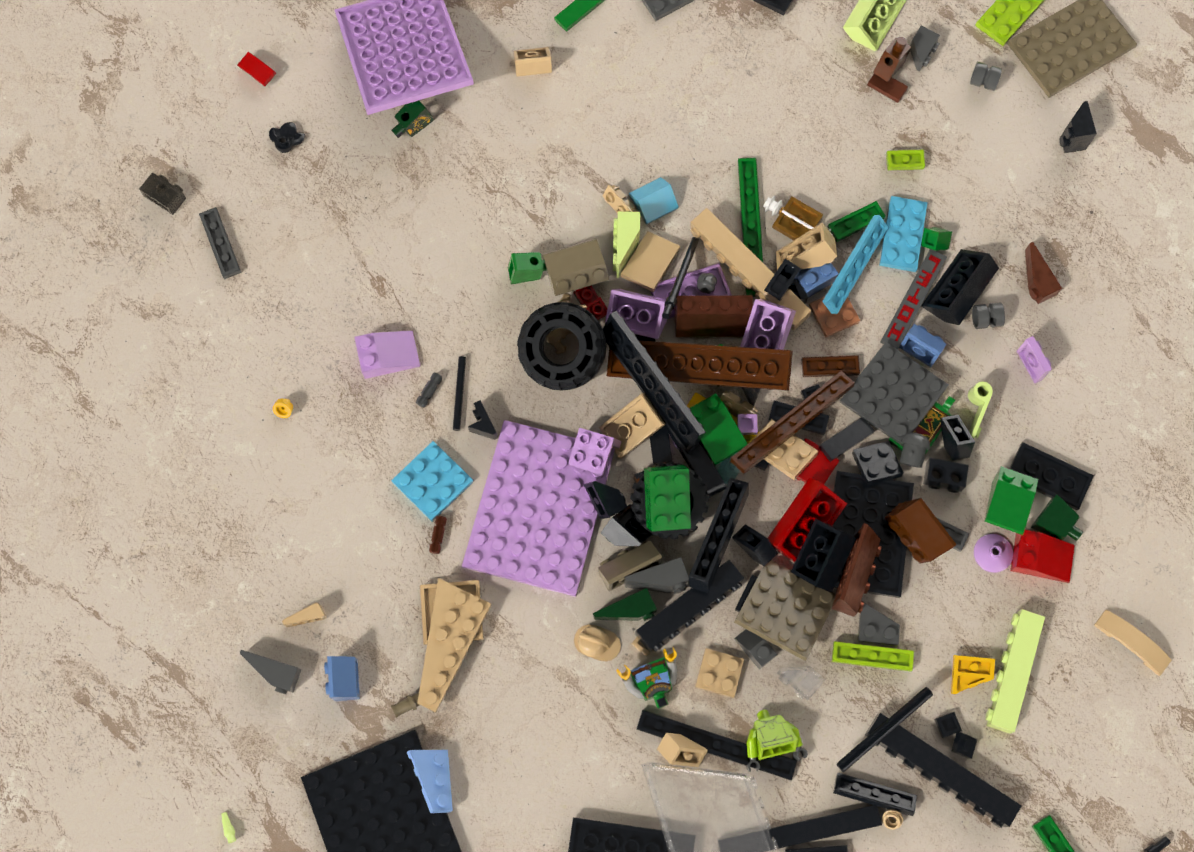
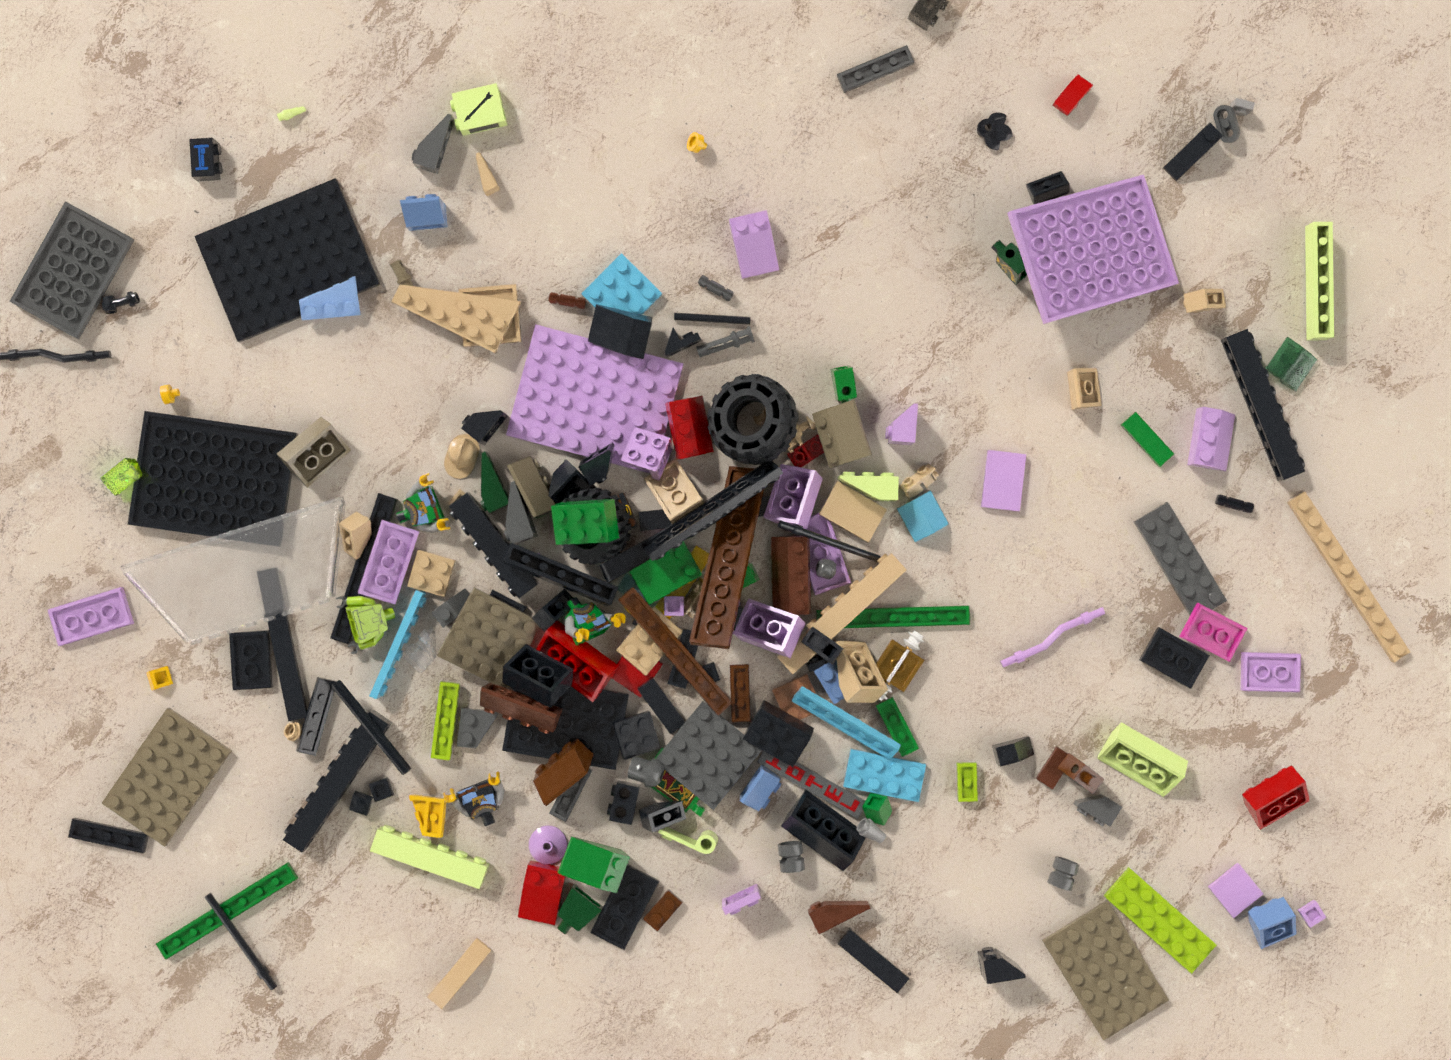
camera: 90 degrees right, 15 degrees up
(236, 624) = (478, 109): none -> yellowish green brick
(342, 91) = (1048, 188): none -> black slope
(471, 477) = (620, 331): none -> black slope
(481, 371) = (736, 342): none -> dark grey pin
(566, 615) = (483, 424): none -> black slope
(568, 211) = (903, 428): none -> lavender slope
(569, 413) = (689, 427): none -> red slope
(593, 796) = (314, 451): none -> dark tan slope
(618, 129) = (1003, 480): none -> lavender tile
(709, 716) = (388, 562): none -> lavender plate
(765, 508) = (589, 621): none -> torso
(784, 114) = (1084, 618): none -> lavender bar
(803, 708) = (395, 652): none -> medium azure plate
(869, 326) = (778, 733): none -> black brick
(874, 121) = (1012, 751): none -> black slope
(951, 619) = (478, 799): none -> torso
(957, 245) = (870, 830): none -> light grey cone
(1050, 439) = (662, 910): none -> reddish brown plate
(1082, 243) = (873, 960): none -> black tile

